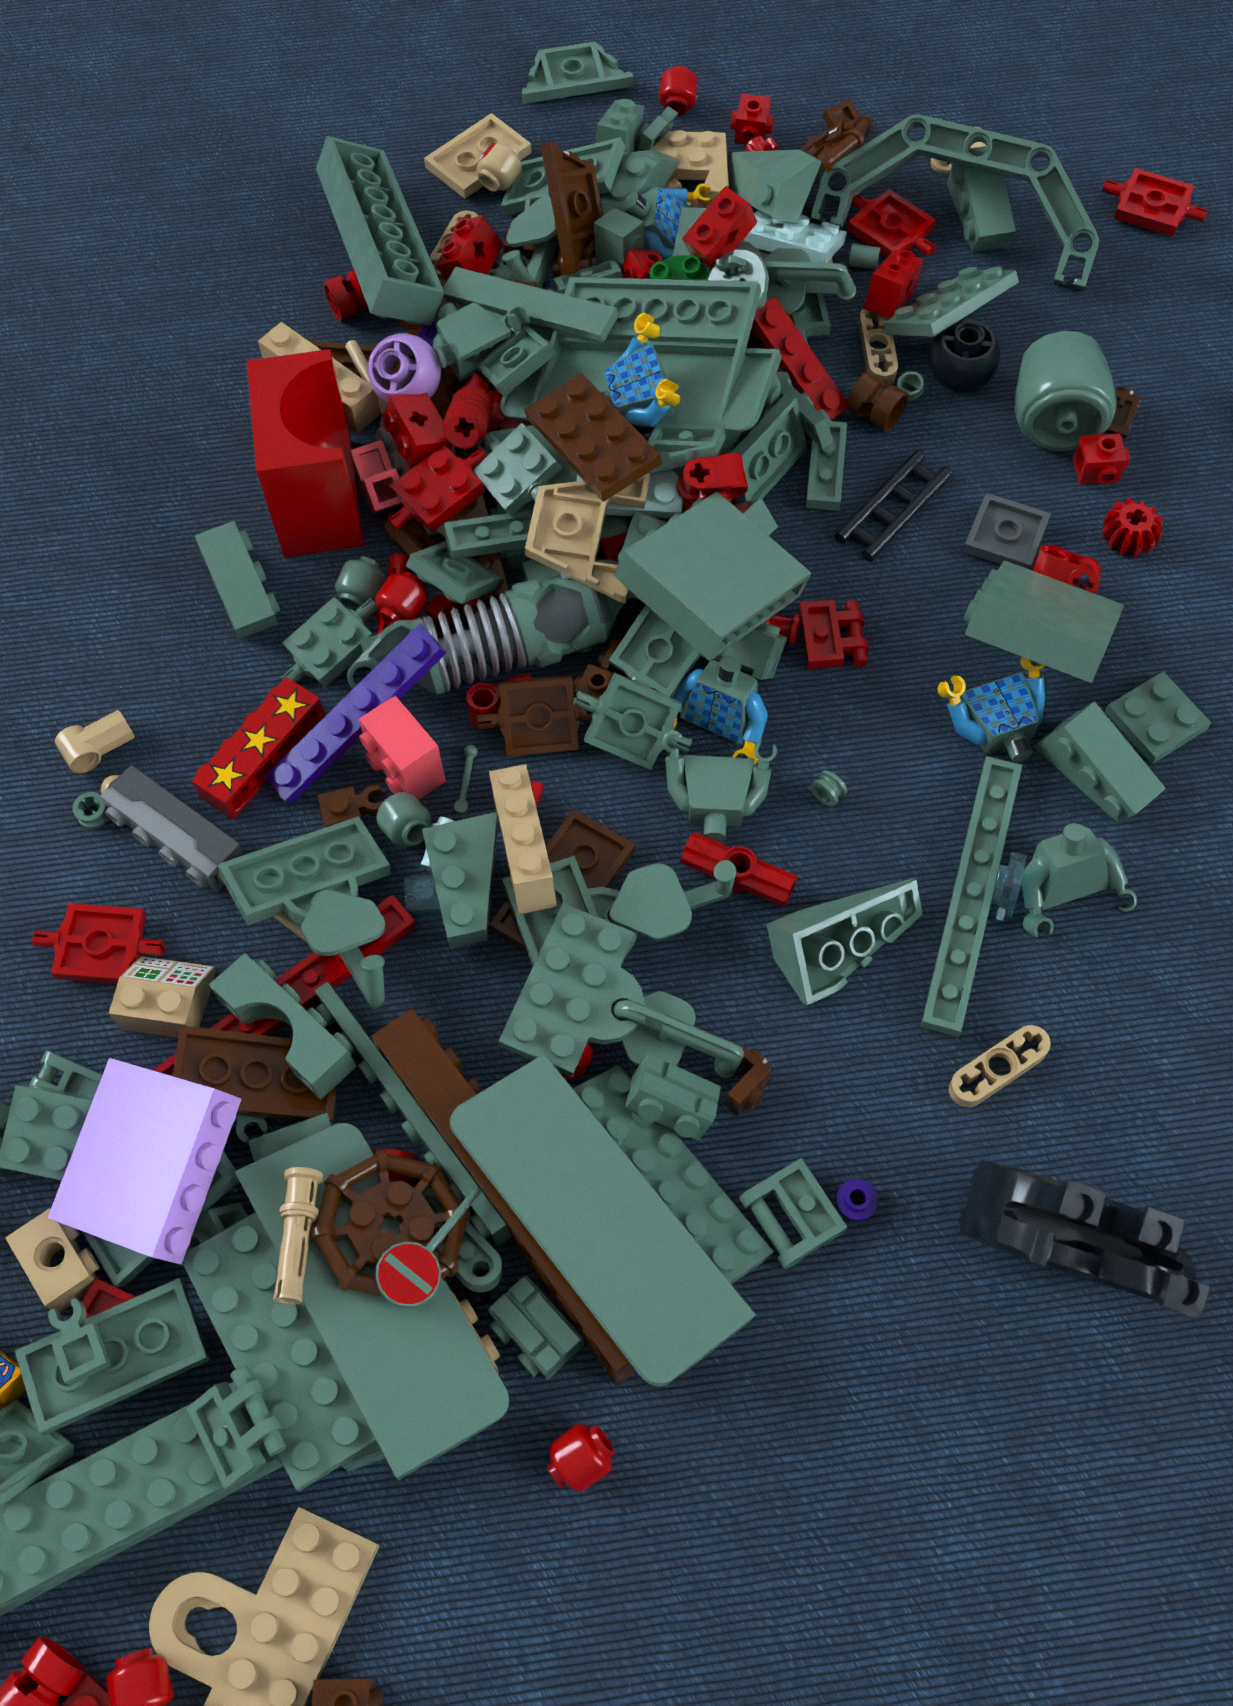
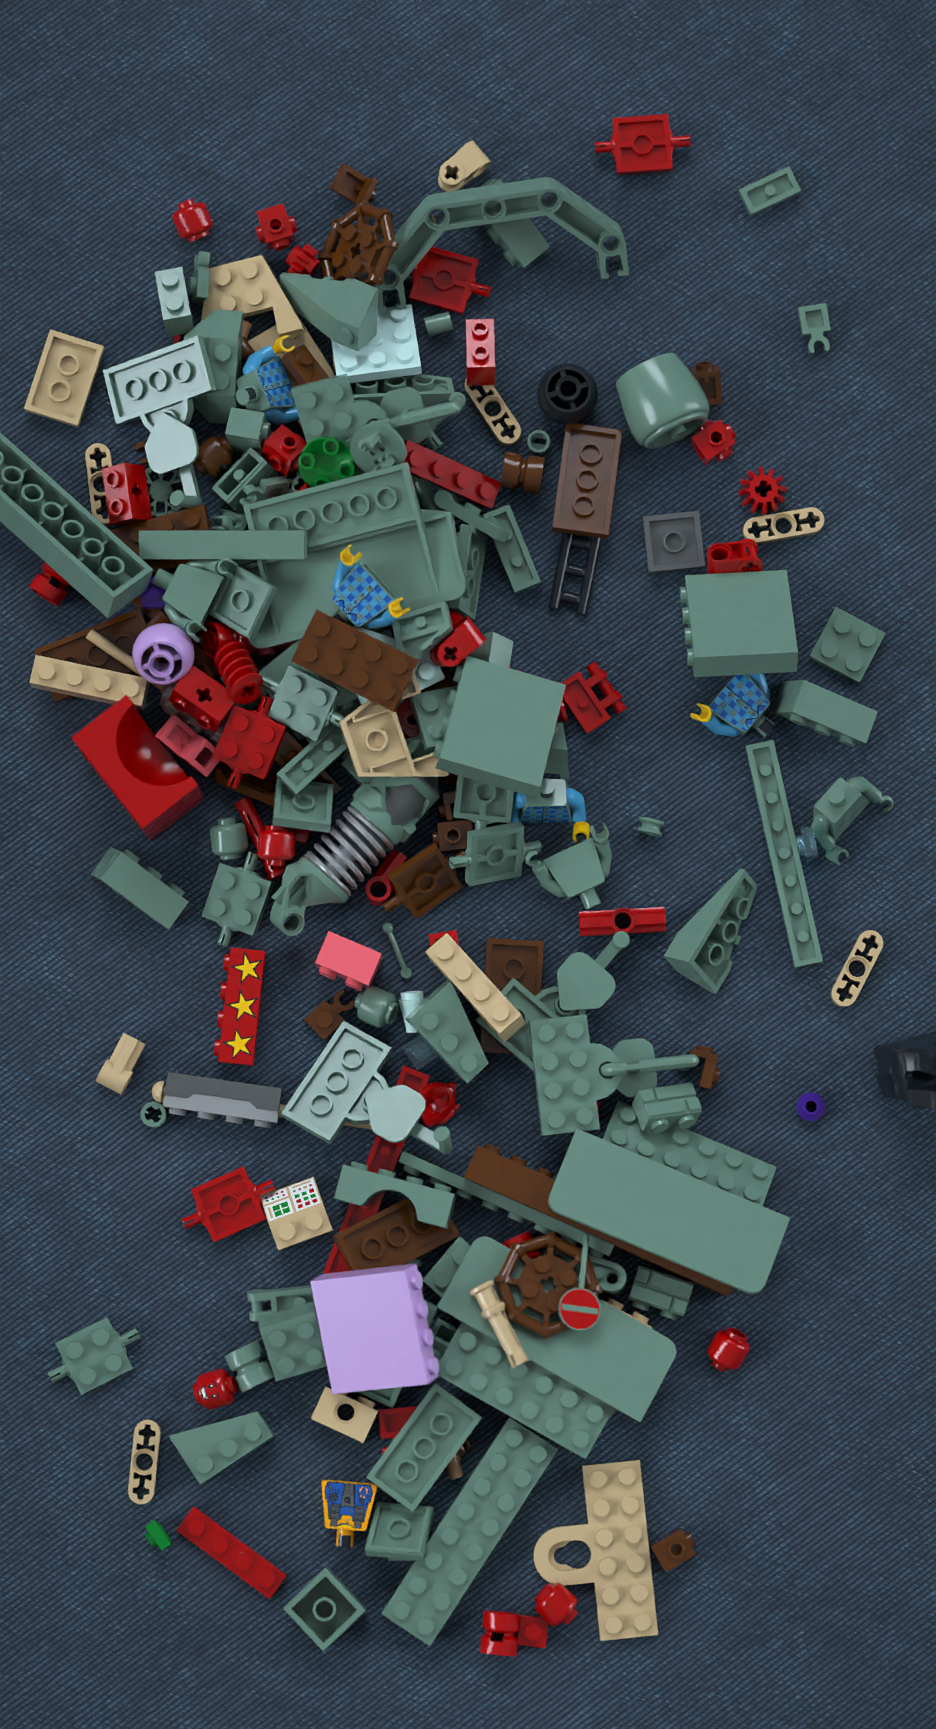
camera: 35 degrees left, 20 degrees up
(80, 1348) = (408, 1455): sand green plate -> none
(147, 1399) = (454, 1467): none -> medium nougat arm
(225, 1432) = (528, 1452): sand green plate -> none
(341, 726) = (303, 953): dark purple plate -> none
(405, 954) = (439, 1102): none -> red hat
(499, 166) = (98, 393): tan head -> none
(573, 72) = (89, 241): sand green wing -> none
(574, 203) = (202, 427): reddish brown wing -> none
(720, 227) = (342, 412): red brick -> none
(804, 1205) = (781, 1128): sand green plate -> none
(942, 436) = (587, 480): none -> reddish brown plate
(950, 302) = (534, 350): sand green plate -> none
(1153, 566) = (789, 515): none -> tan beam

